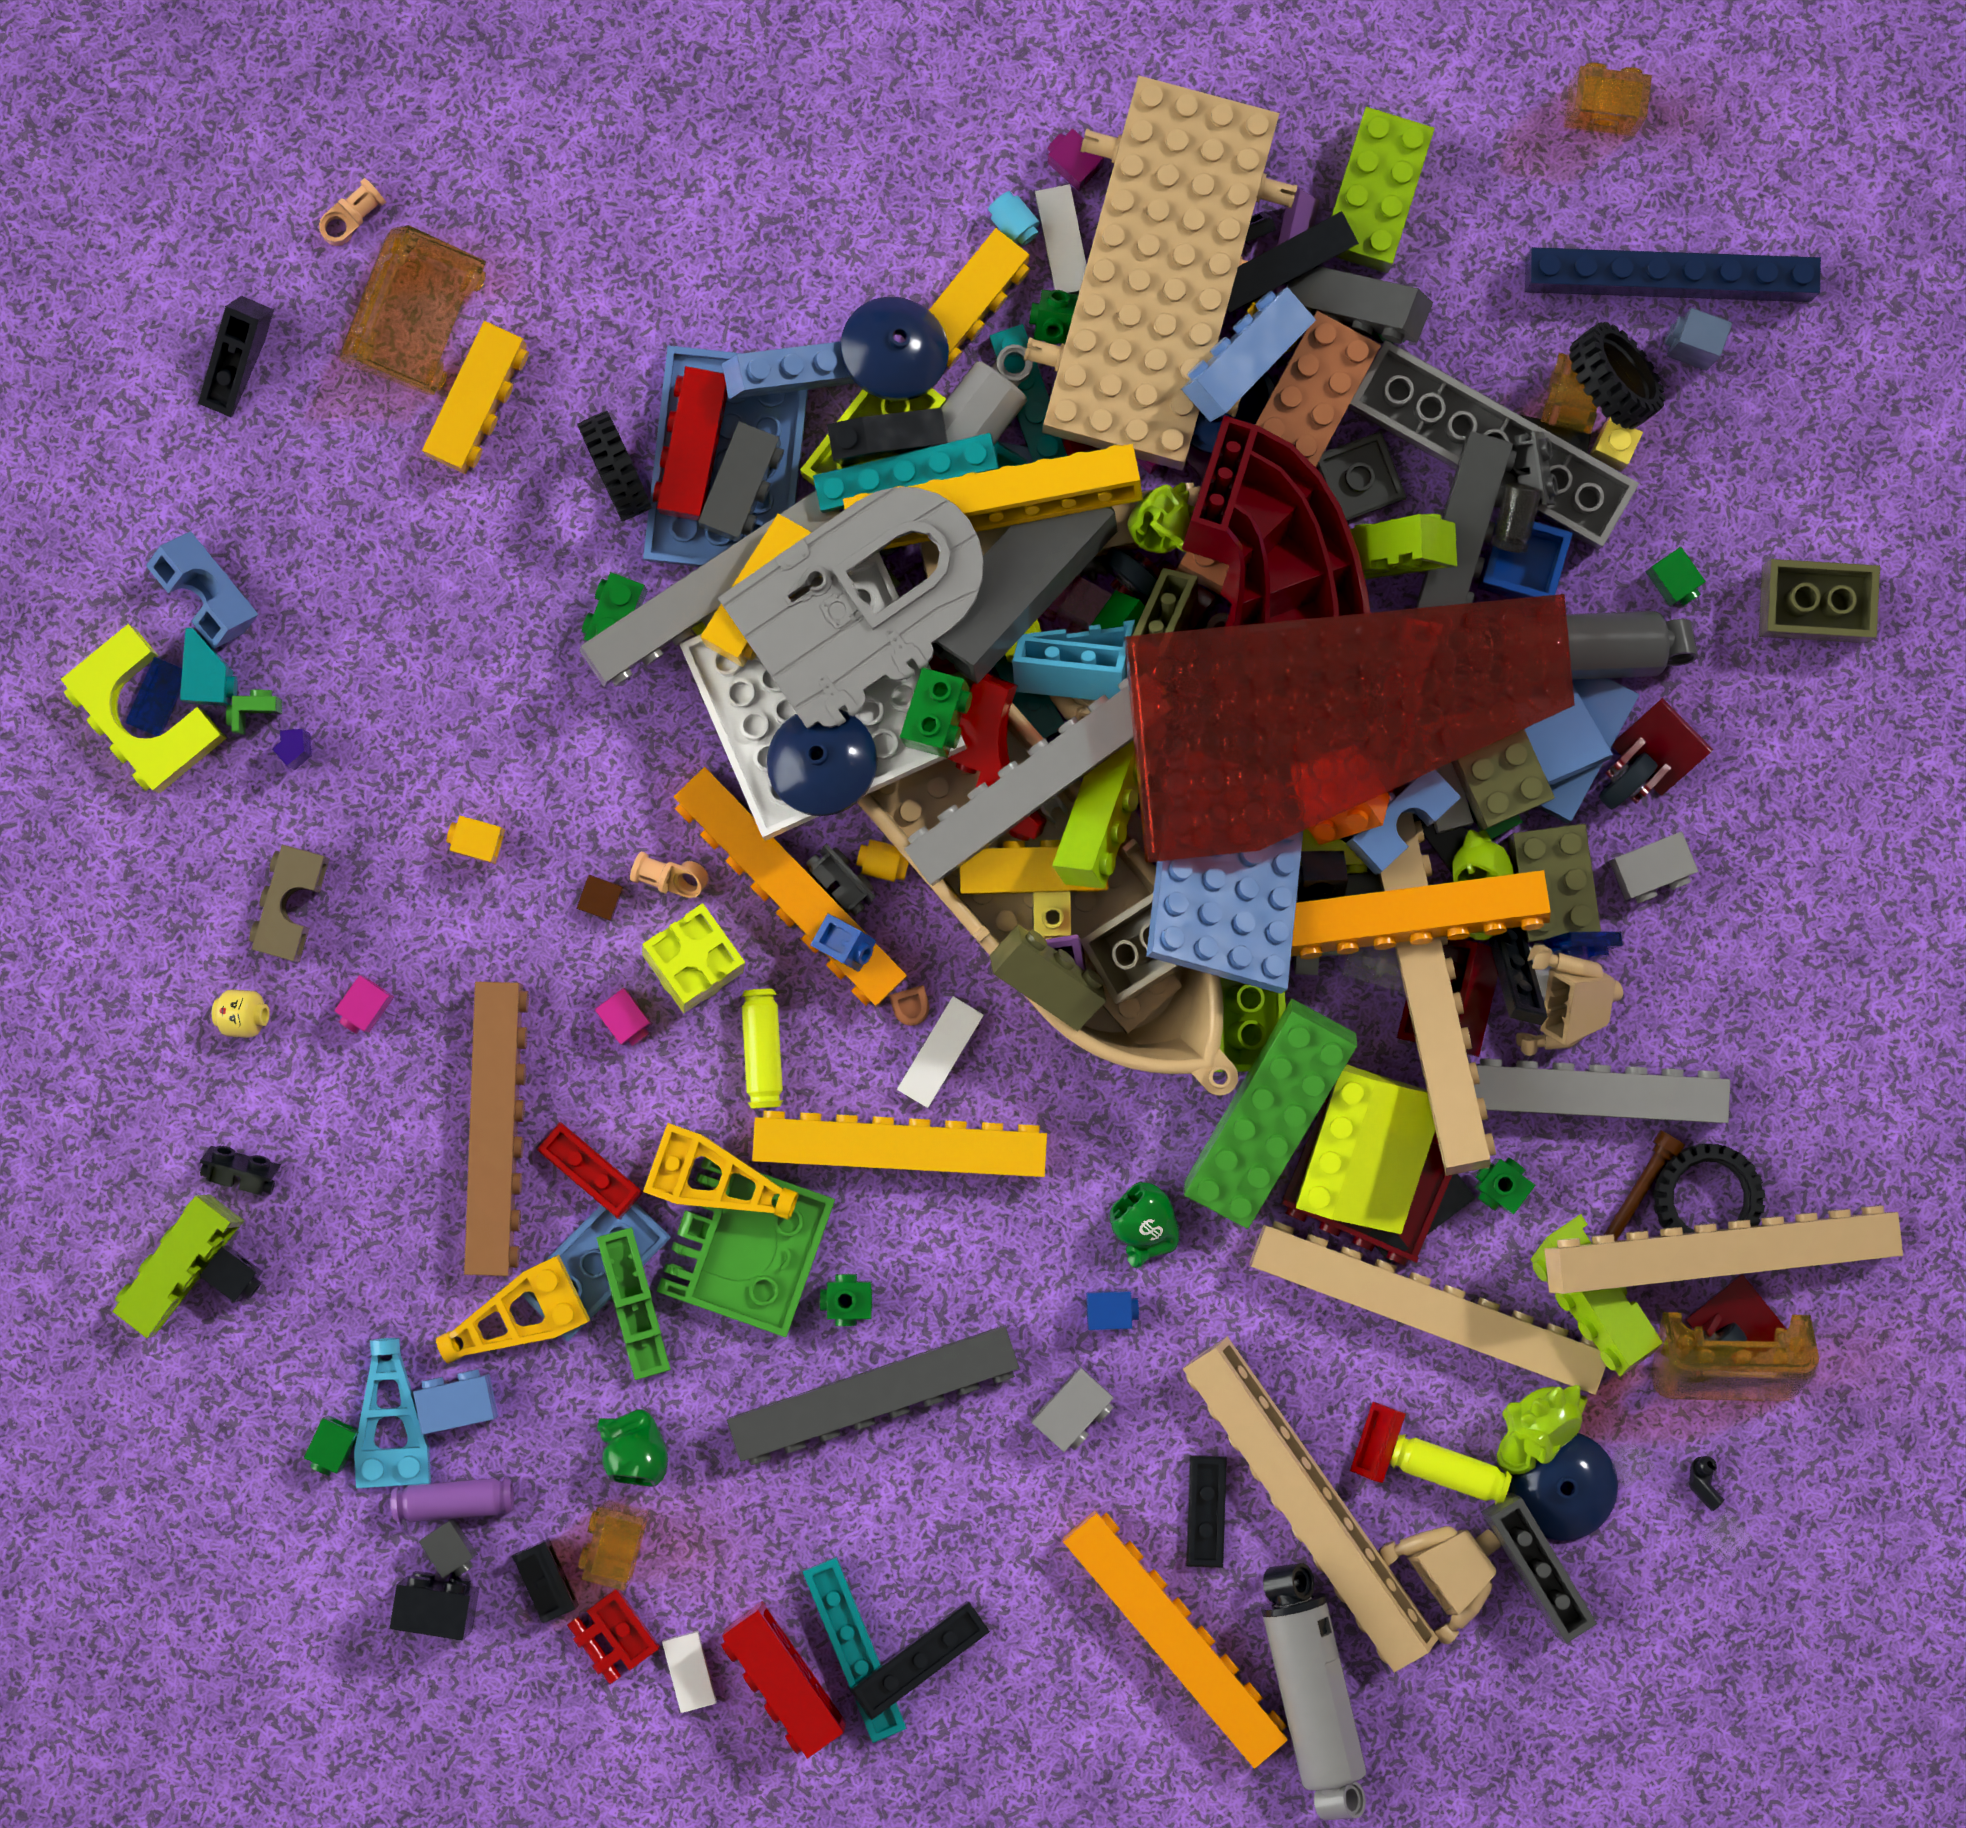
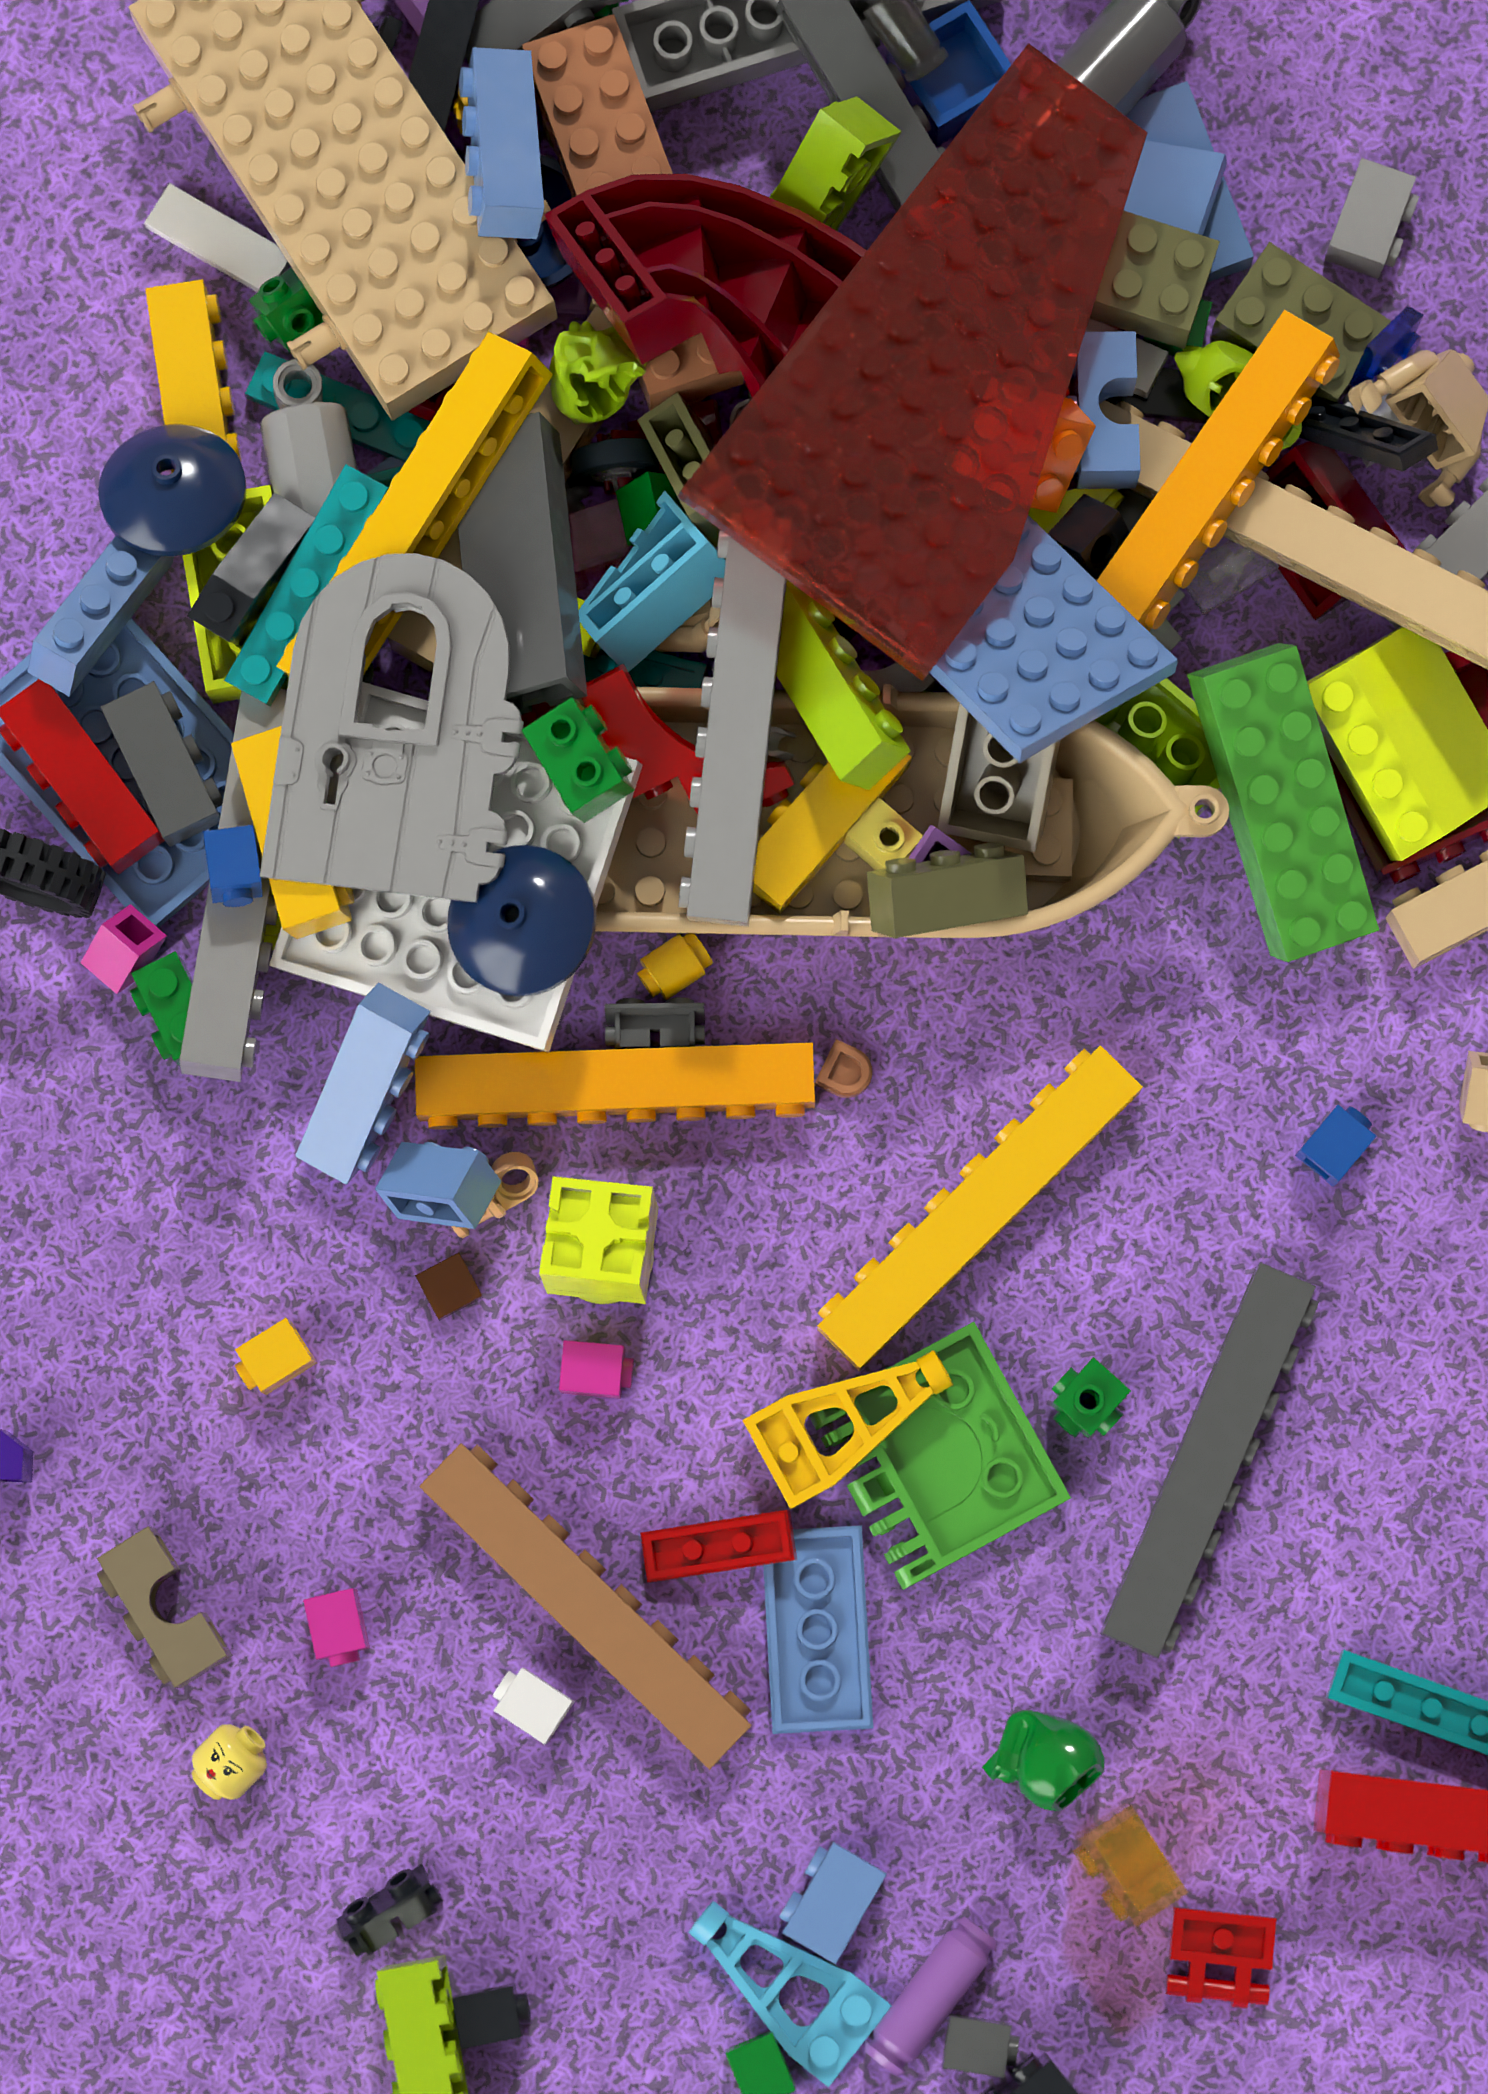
camera: 40 degrees left, 5 degrees down
(415, 1147) = (531, 1704): none -> white brick
(545, 1580) = (1100, 1976): black hinge -> none
(555, 1296) = (818, 1697): yellow plate -> none
(621, 554) = (122, 947): none -> dark pink brick
(633, 1303) = (895, 1623): bright green slope -> none
(646, 843) = (438, 1184): none -> medium blue brick
(662, 754) = (363, 1084): none -> brick
(689, 1671) = (1327, 1910): white tile -> none
(712, 576) = (233, 865): none -> blue brick
(762, 1048) = (752, 1258): neon yellow axle -> none
(843, 942) = (722, 1073): blue bracket -> none
(940, 1052) = (919, 1083): white tile -> none
(1014, 218) = (152, 265): medium azure brick -> none
(1070, 162) = (147, 157): magenta brick -> none
(1073, 1410) = (1406, 1272): light grey brick -> none
(1145, 1222) = (1279, 1030): green piece -> none
(1362, 476) = (726, 148): dark grey tile -> none
(1659, 752) = (1260, 121): dark red plate -> none

